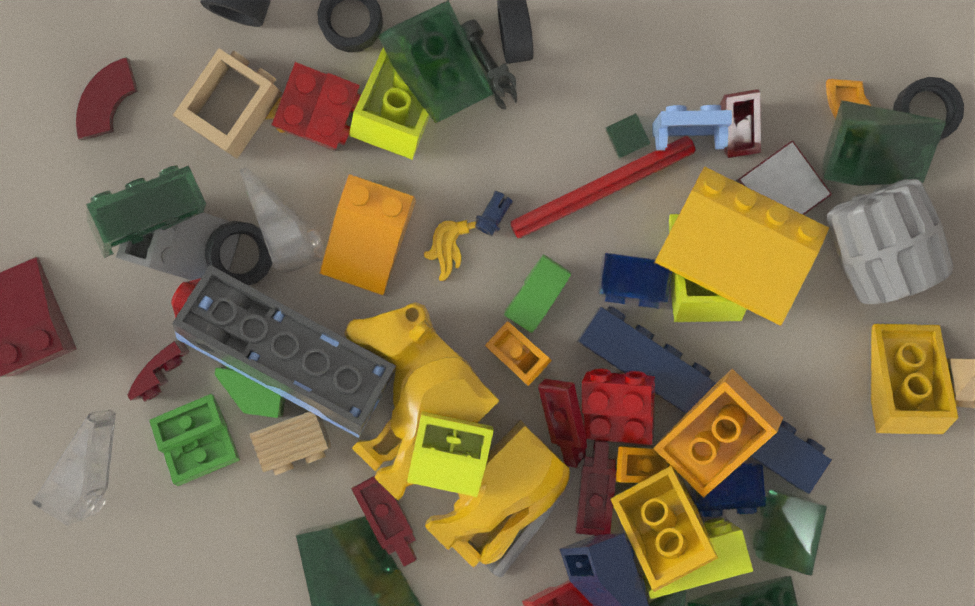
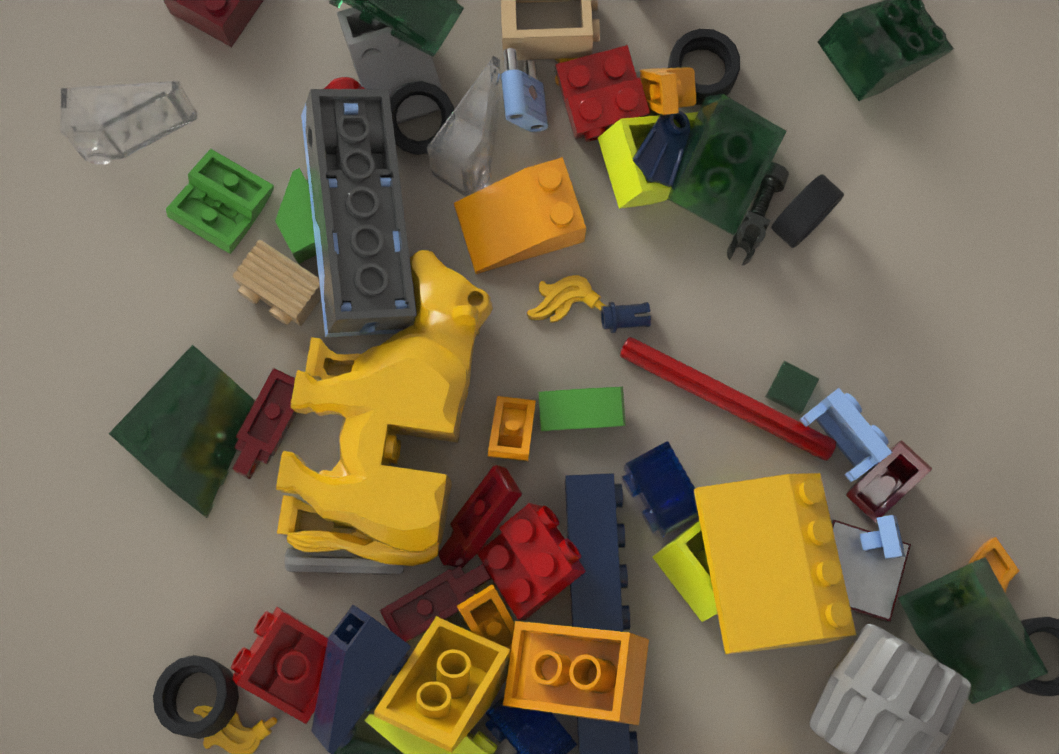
camera: 50 degrees right, 10 degrees down
(151, 377) = (251, 121): dark red slope -> none
(276, 164) = (523, 94): none -> light blue piece
(352, 59) = (669, 89): none -> light orange slope
(395, 96) = (663, 149): none -> dark blue piece
(450, 454) = (367, 417): neon yellow slope -> none
(779, 154) = (887, 538): none -> light blue tile

